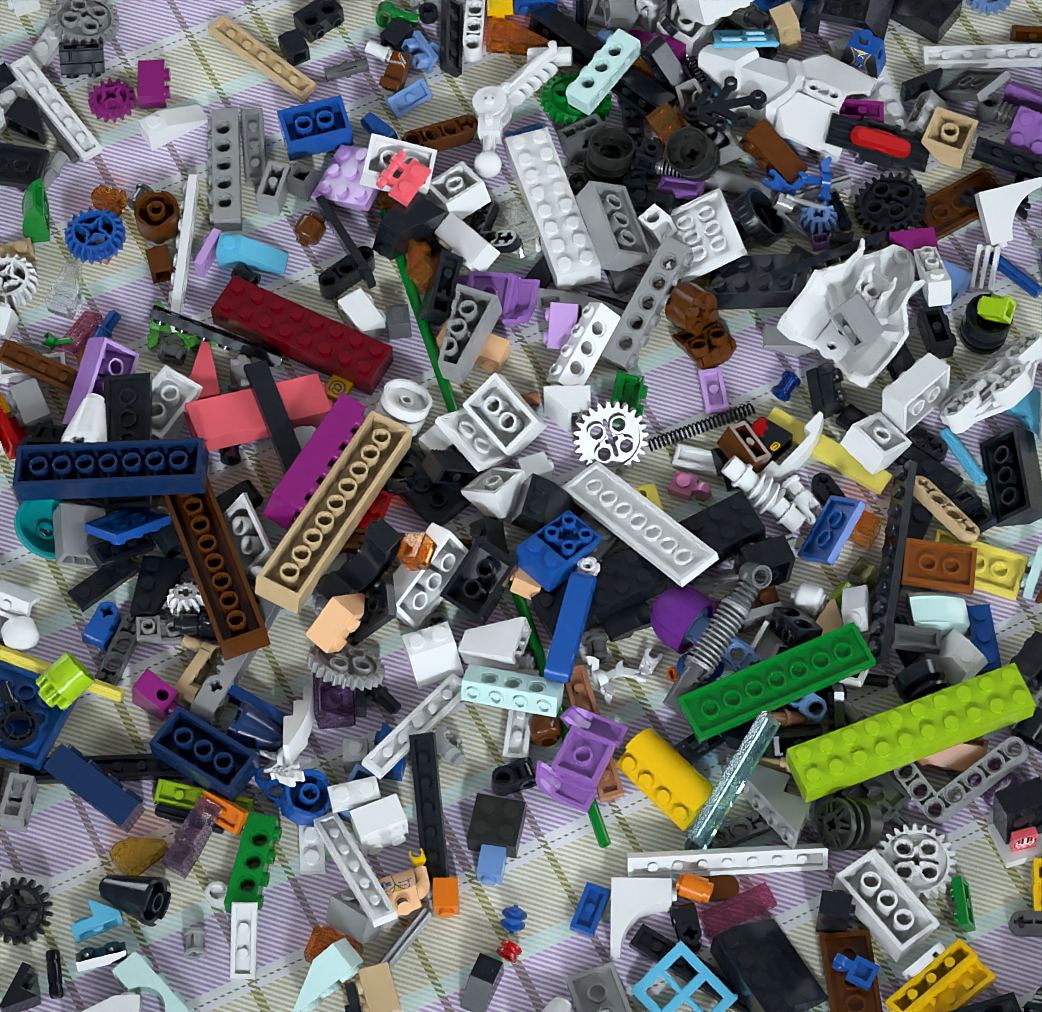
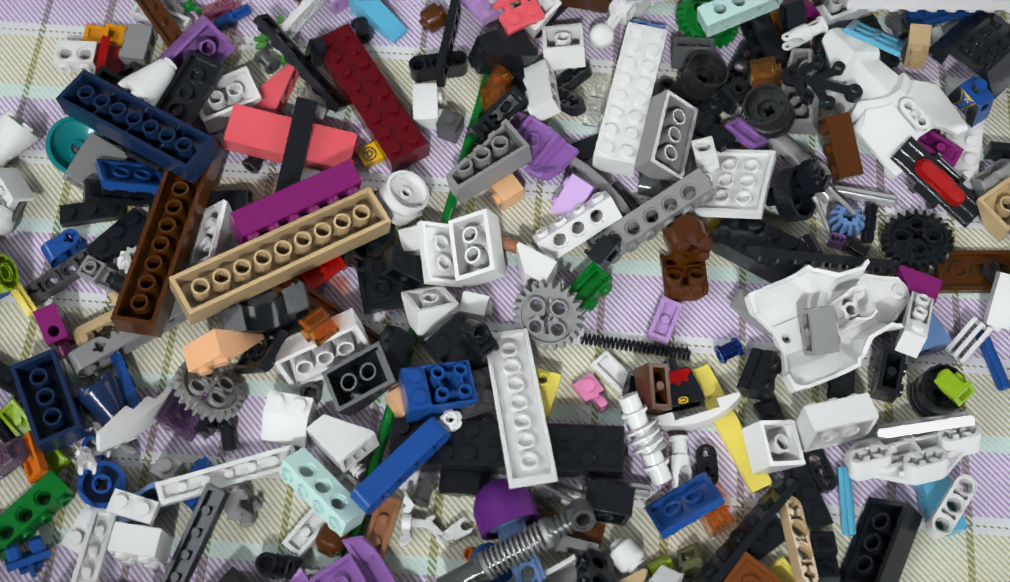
camera: 30 degrees right, 5 degrees up
(218, 316) = (316, 51): none -> black beam
(284, 898) = (28, 560): none -> blue hips
(566, 487) = (481, 341): none -> black piece
(623, 356) = (604, 250): none -> black brick
(679, 66) = (804, 33): none -> white piece
(767, 193) = (812, 177): none -> black brick
(824, 181) = (870, 190): blue piece -> none
(990, 356) = (925, 424): none -> white tile

